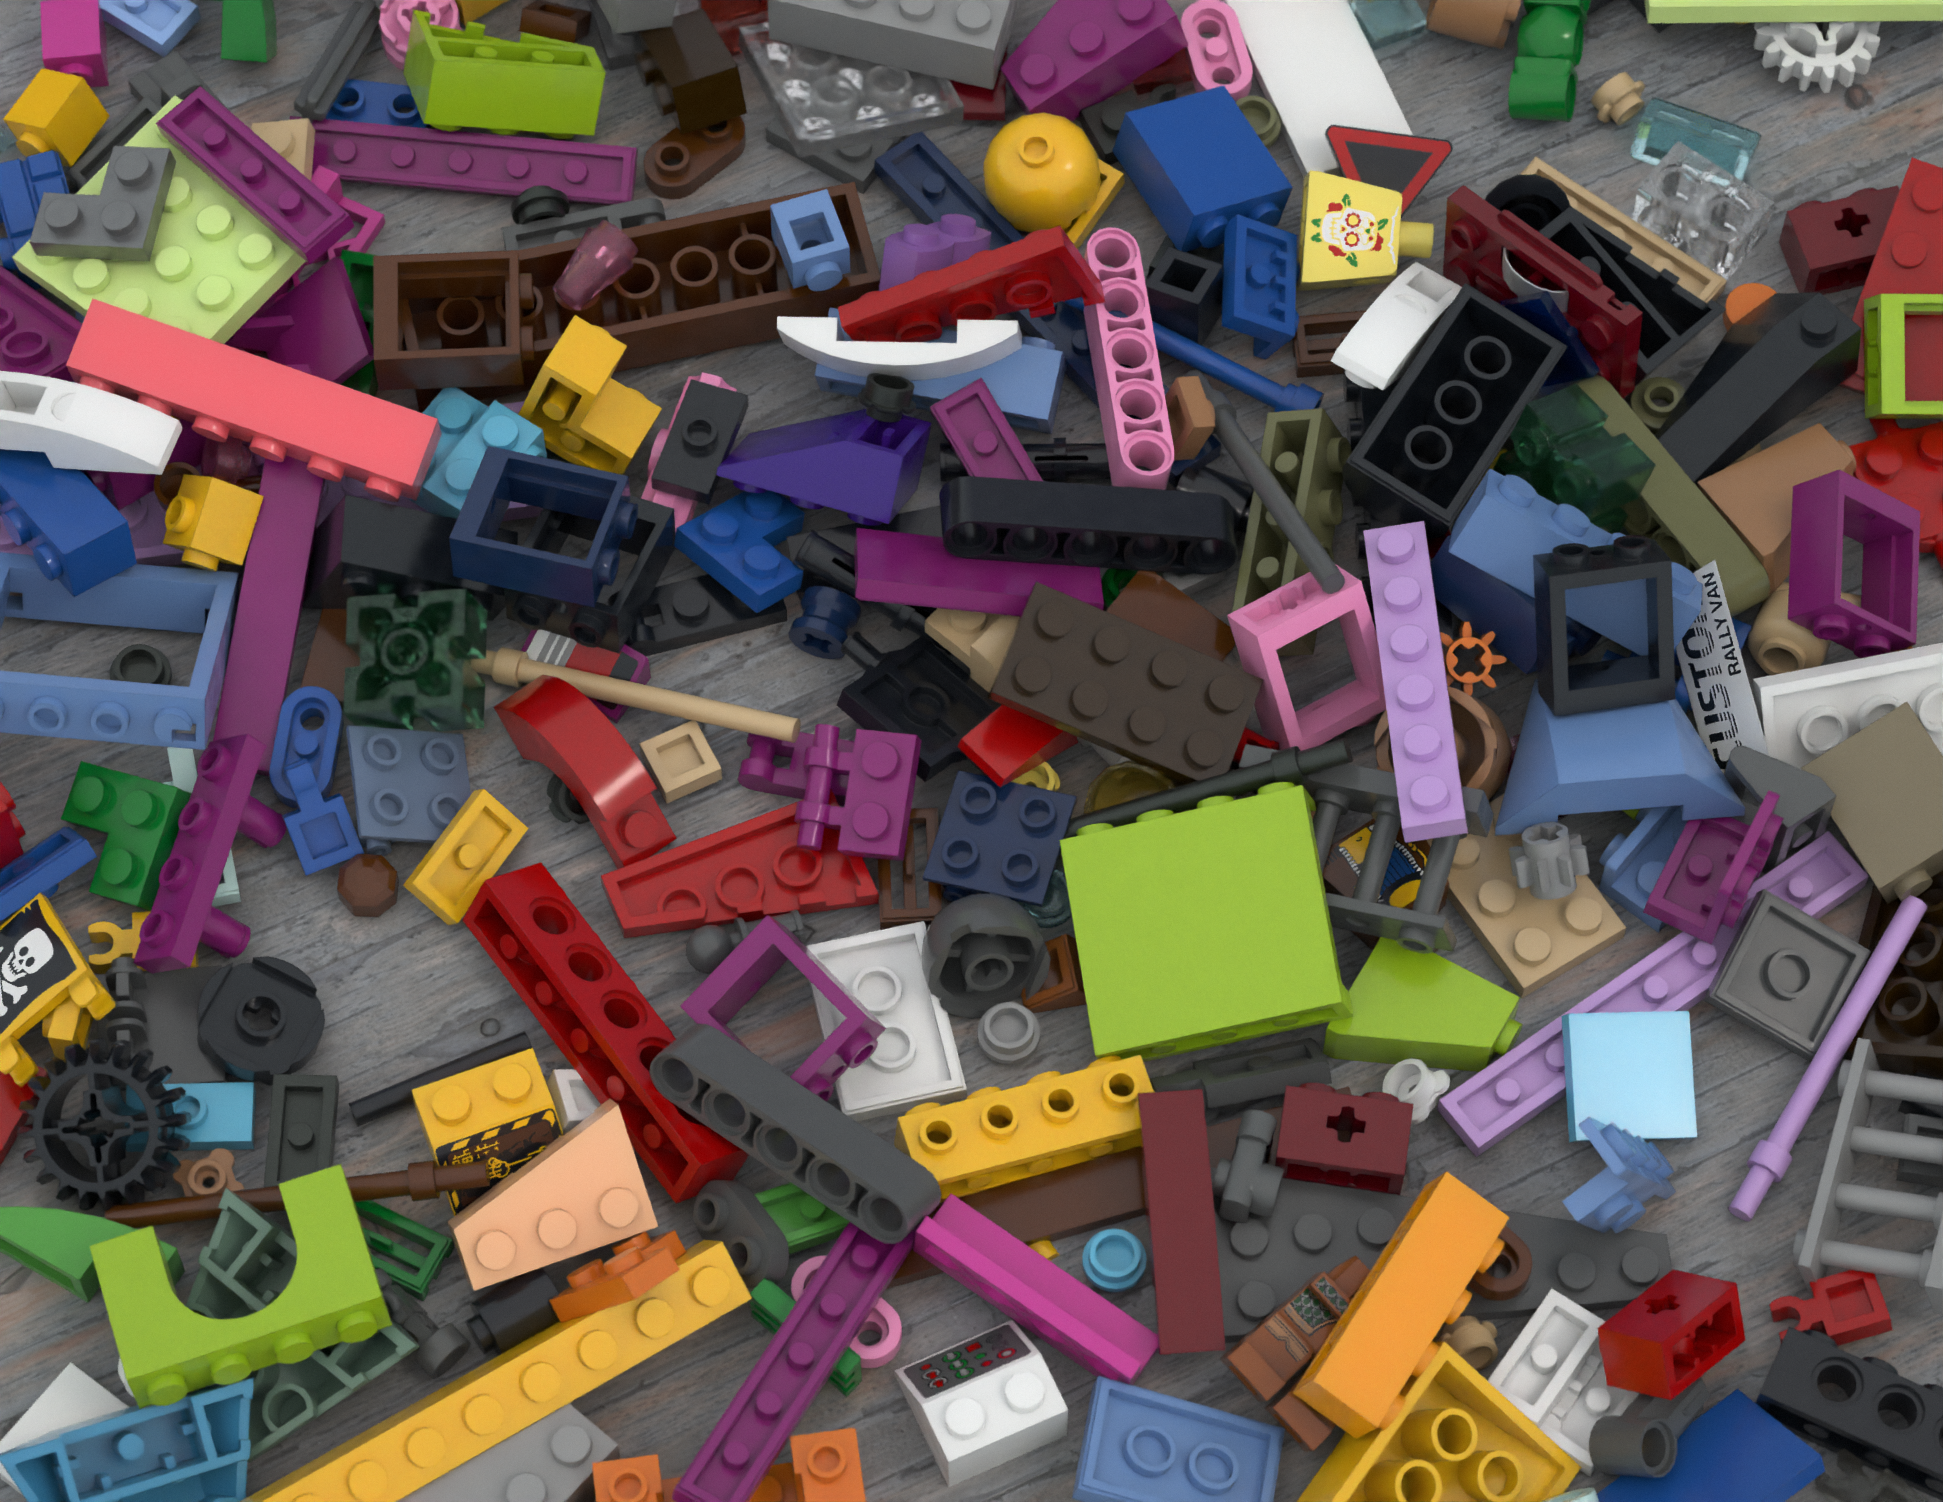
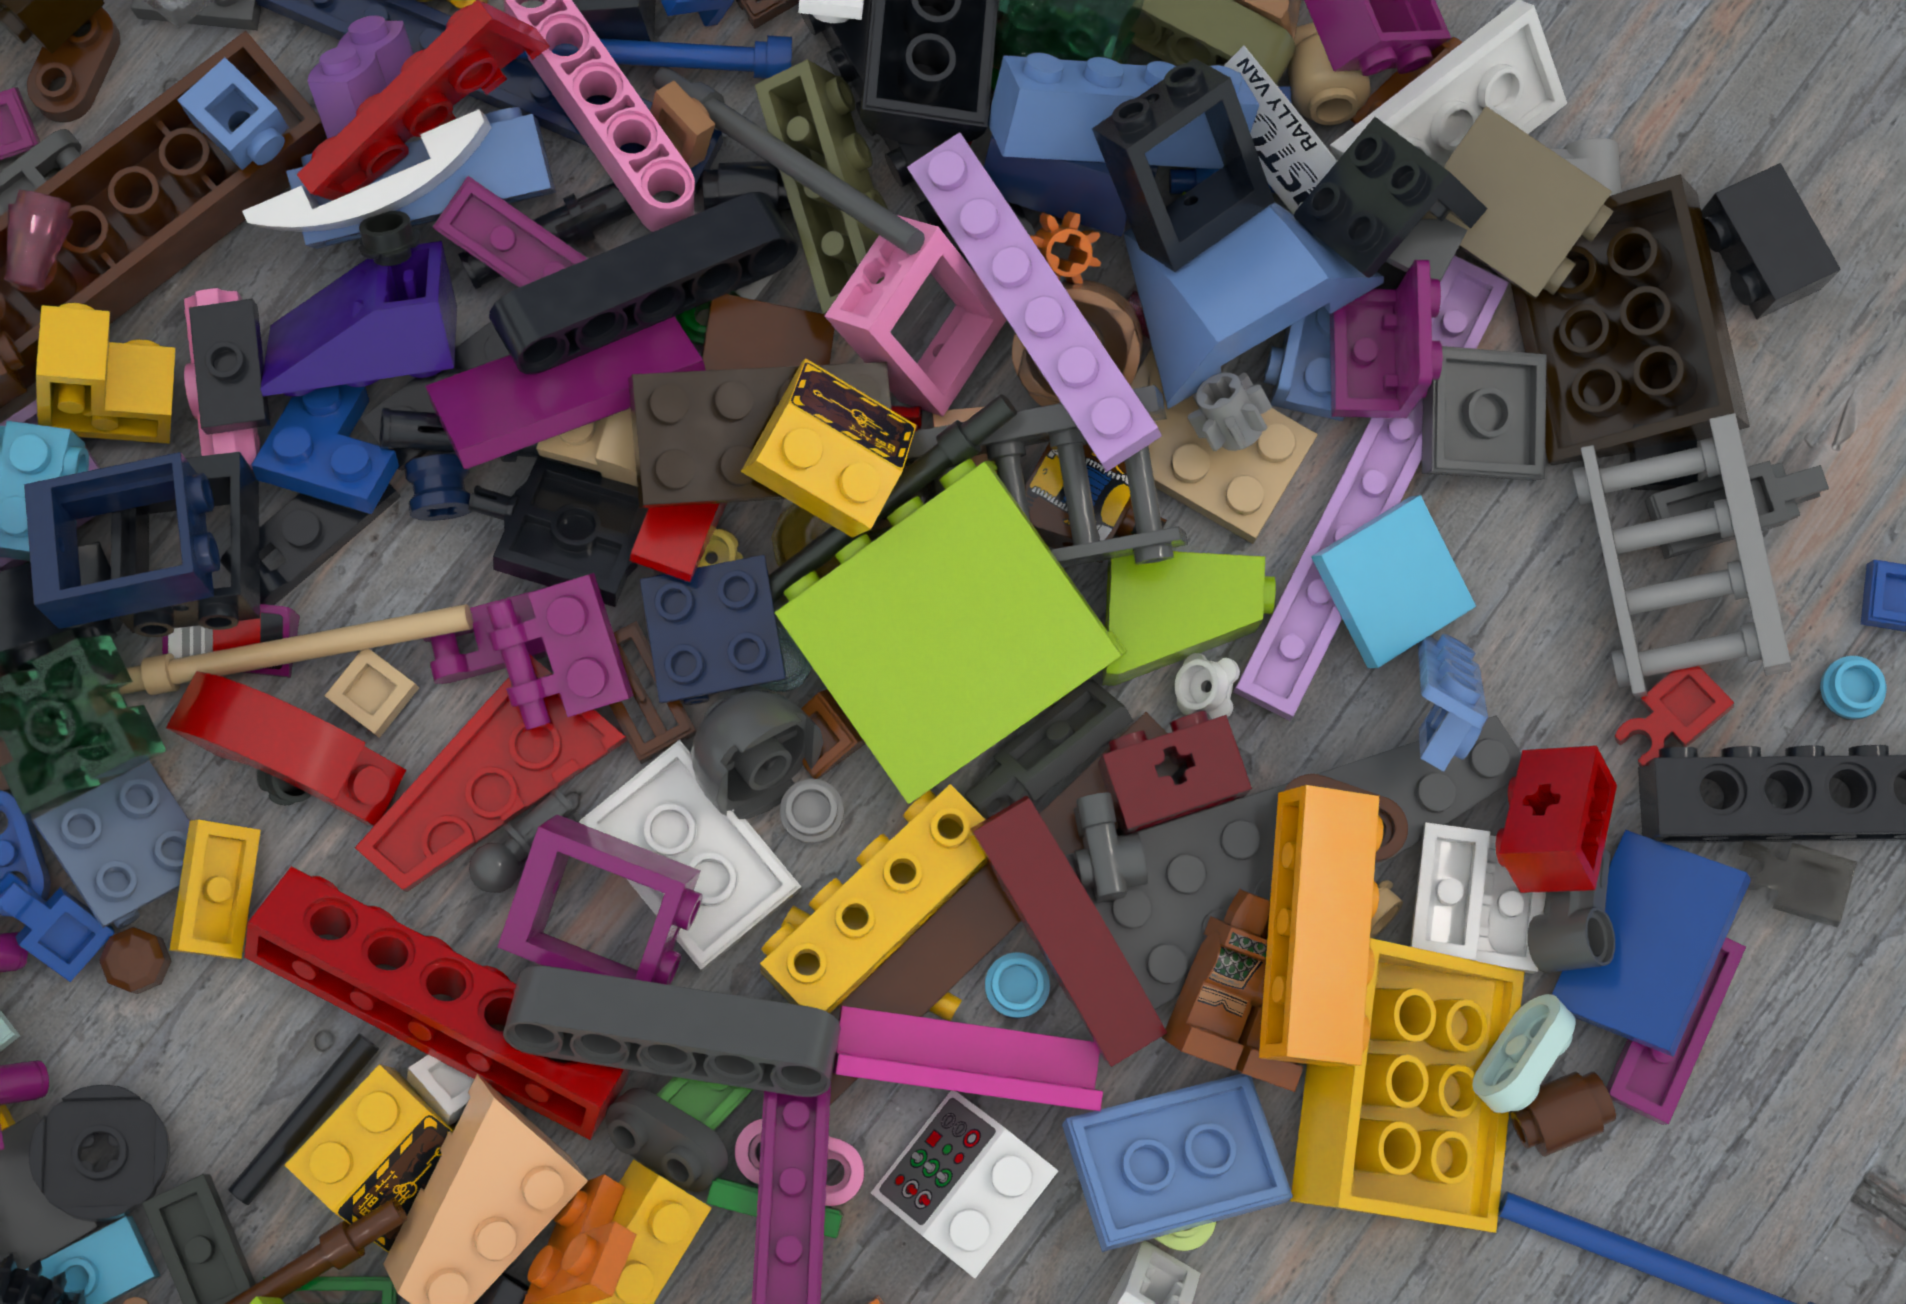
camera: 30 degrees left, 15 degrees up
(1173, 720) = (831, 450): none -> yellow slope
(1768, 728) = (1380, 196): none -> black bracket
(1772, 1156) = (1549, 595): lavender bar -> none

